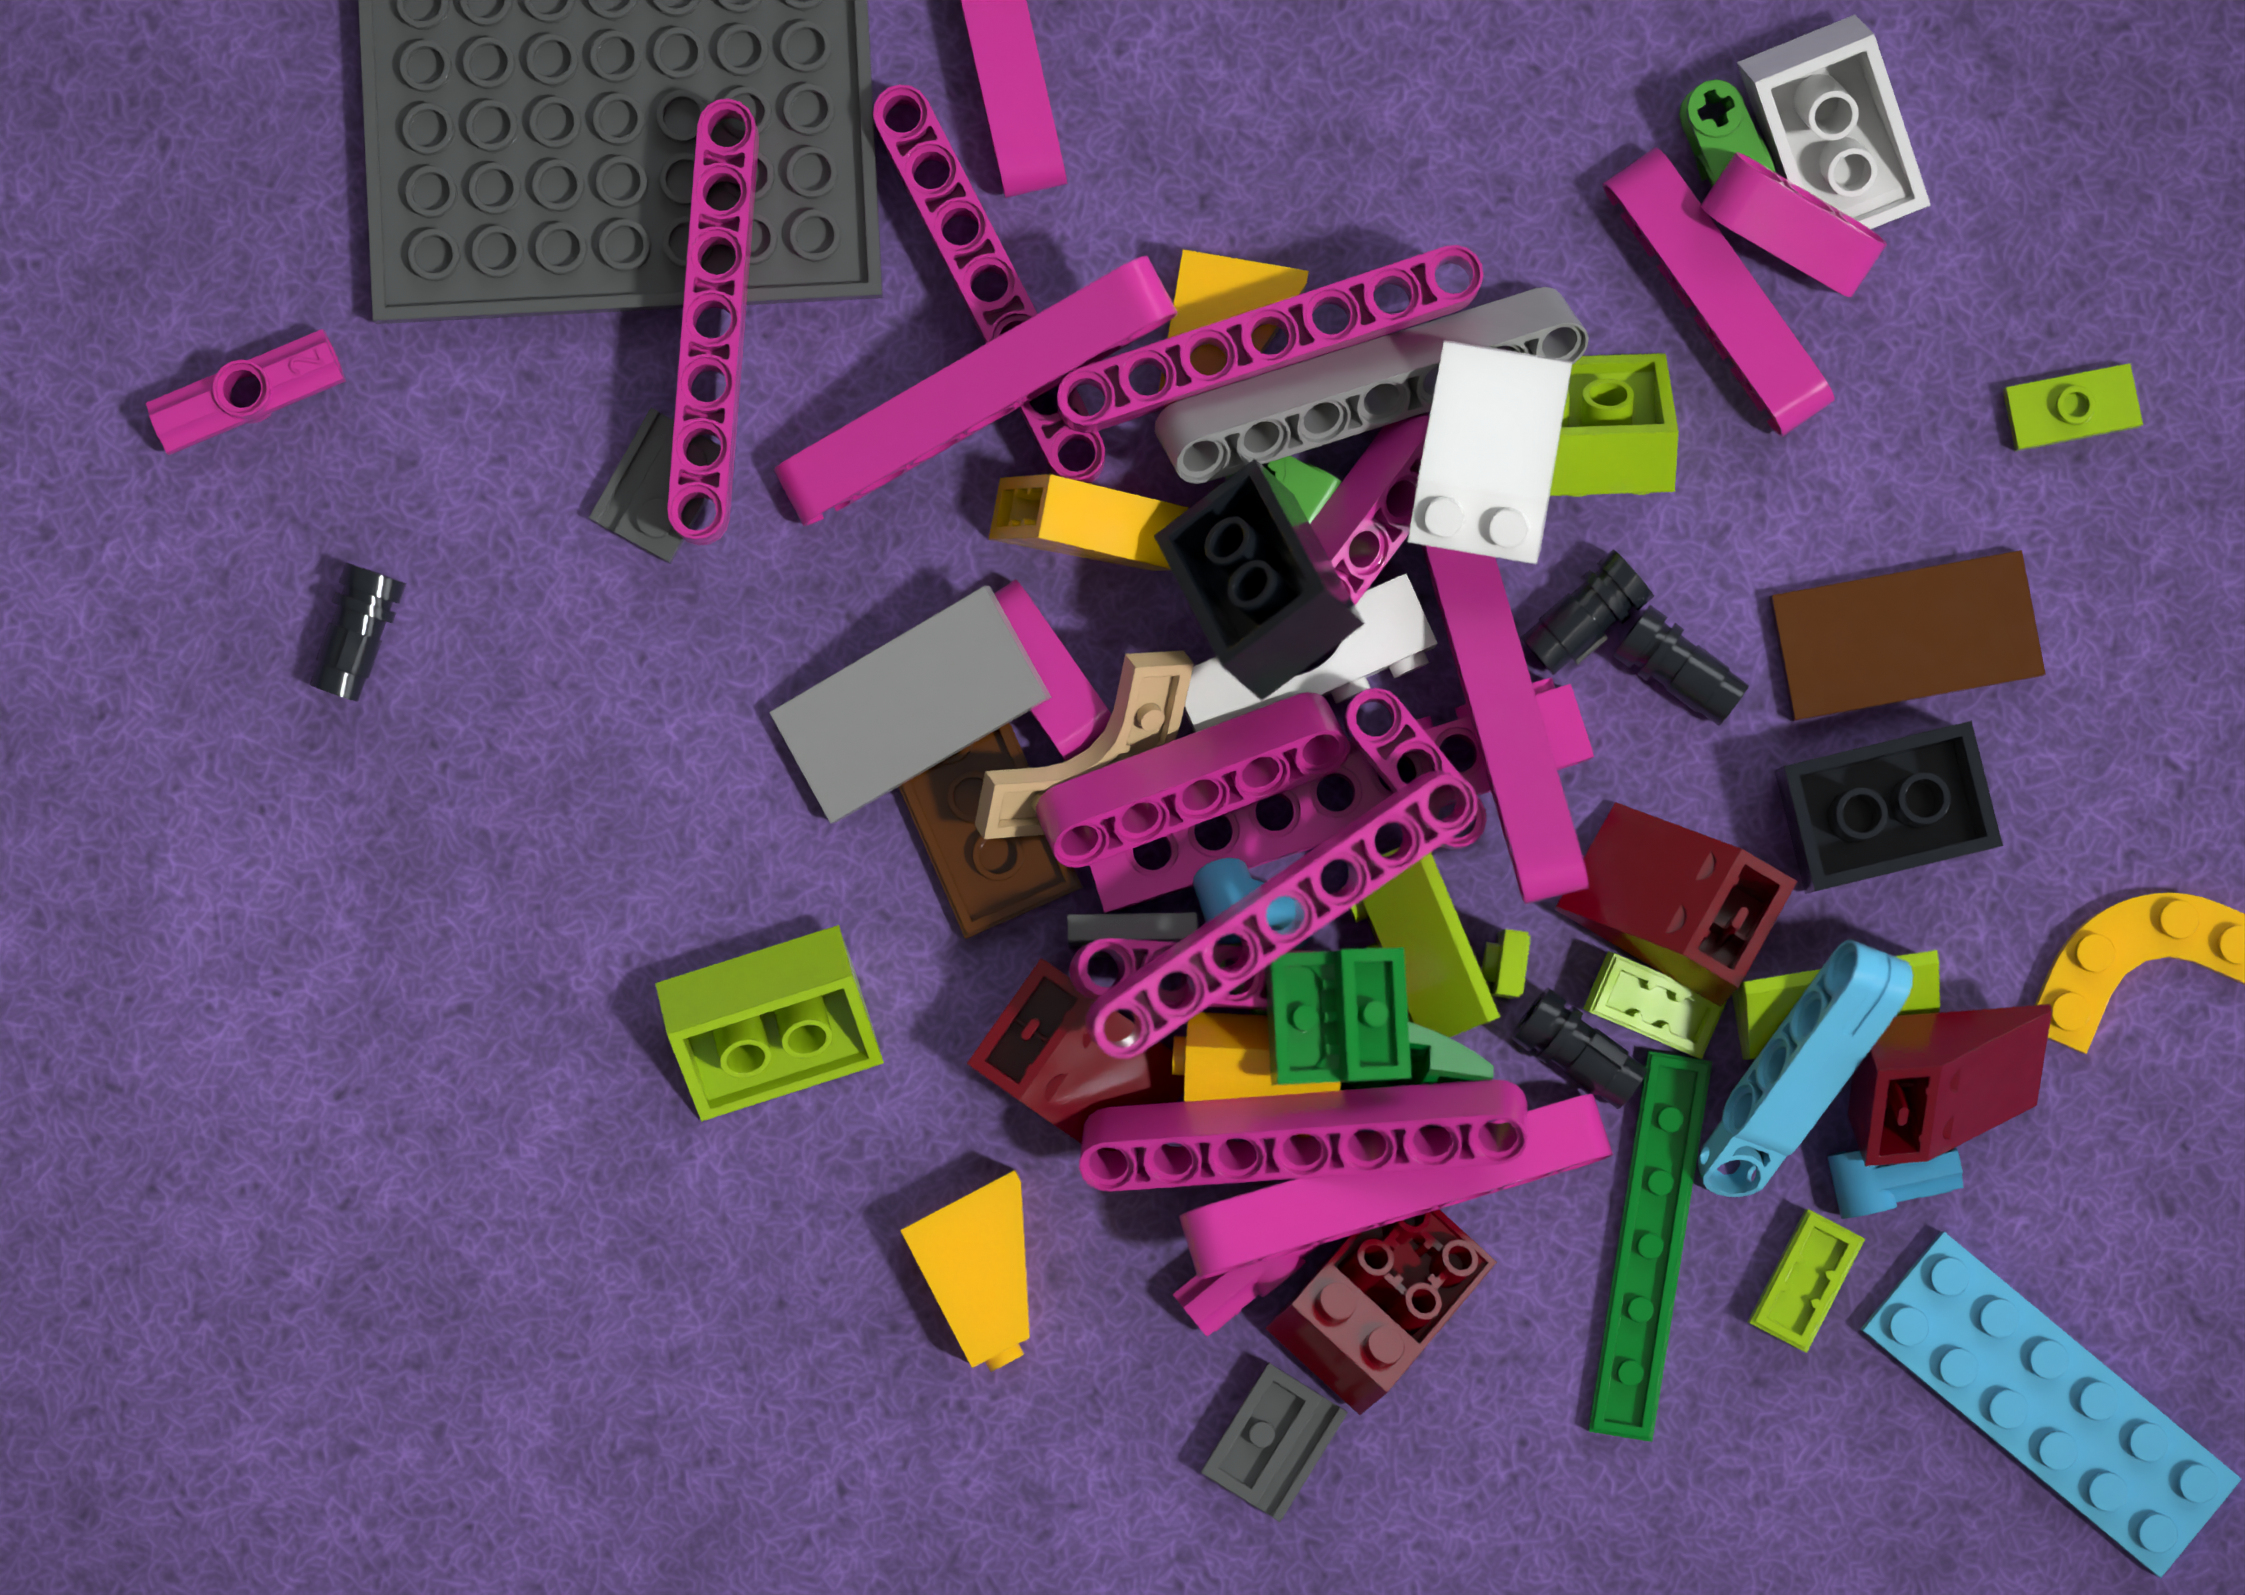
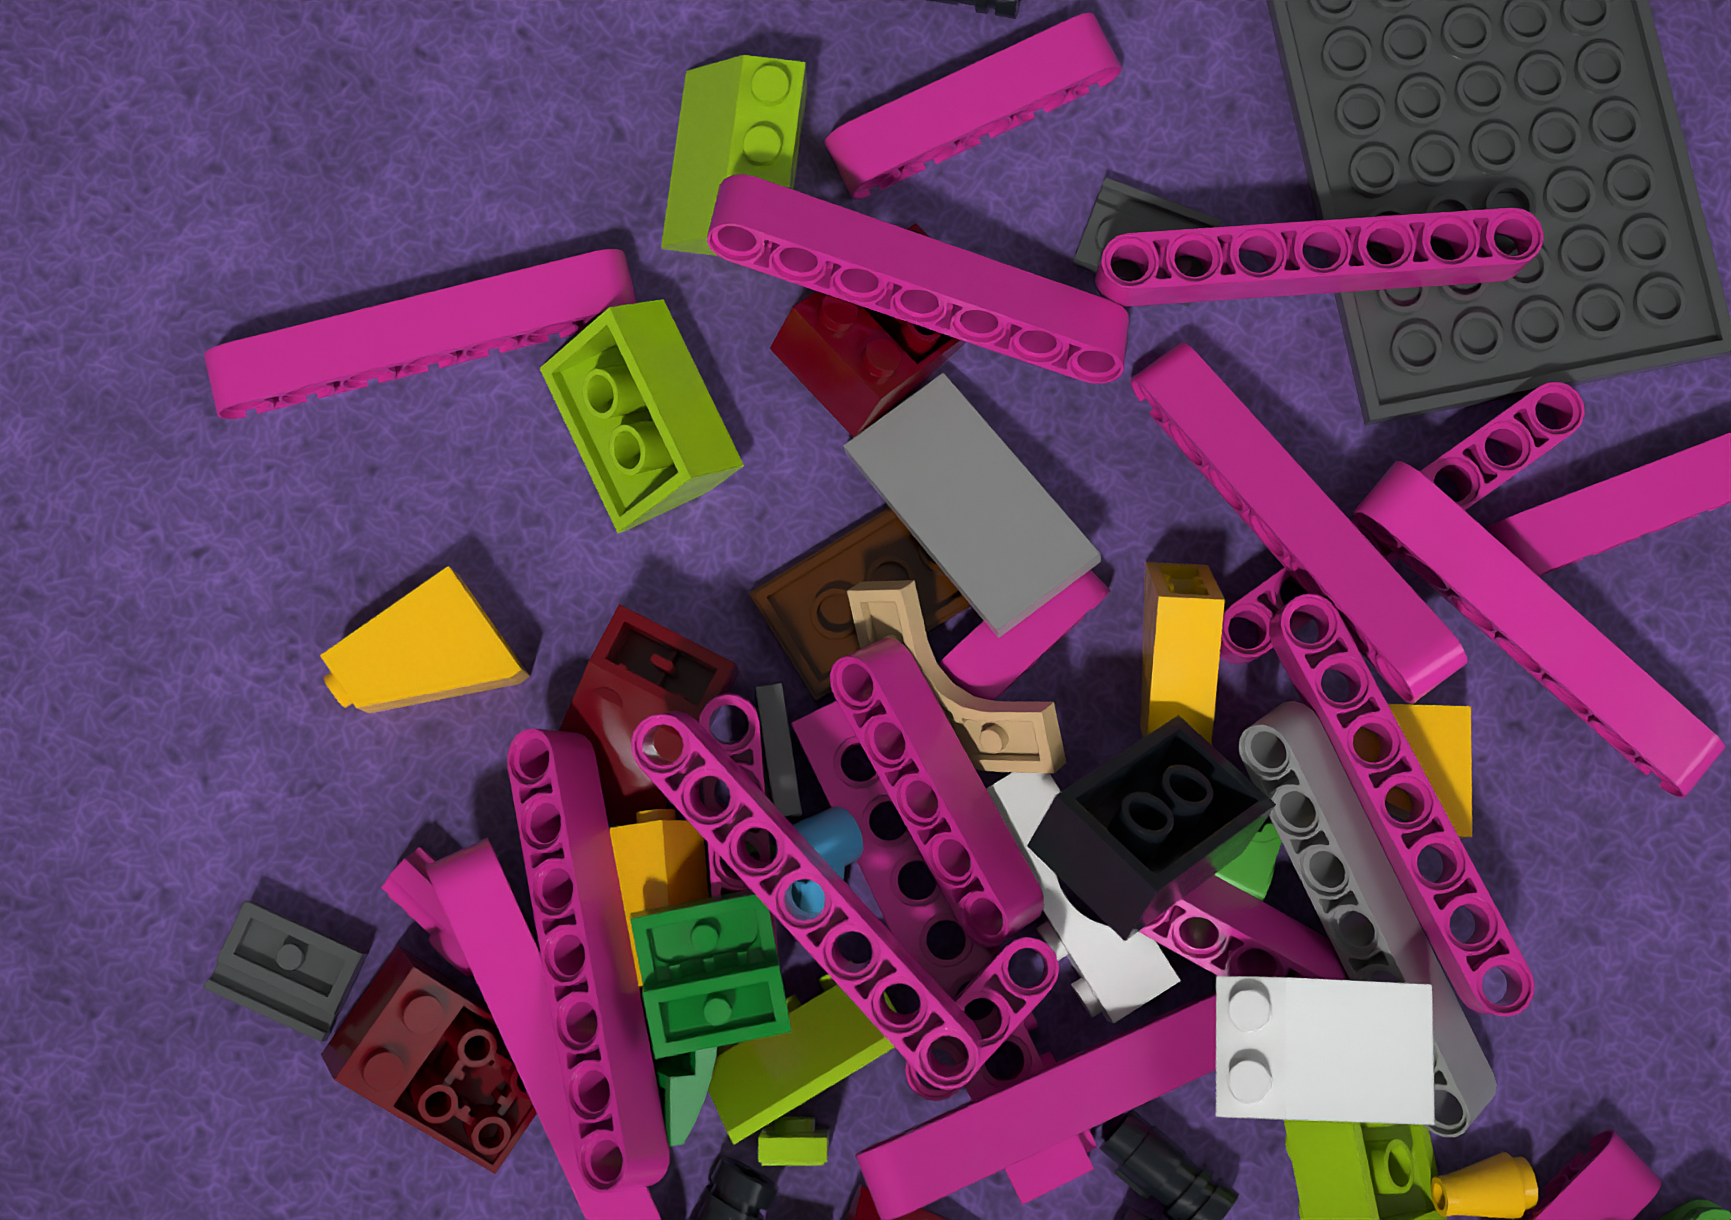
camera: 85 degrees right, 5 degrees down
(493, 640) = (972, 103): none -> dark pink beam
(514, 892) = (732, 121): none -> lime slope
(651, 1234) = (416, 332): none -> dark pink beam
(682, 721) = (918, 279): none -> dark pink beam
(714, 765) = (858, 357): none -> dark red slope
(1117, 170) = (1538, 629): none -> dark pink beam
(1641, 312) = (1490, 1188): none -> yellow cone

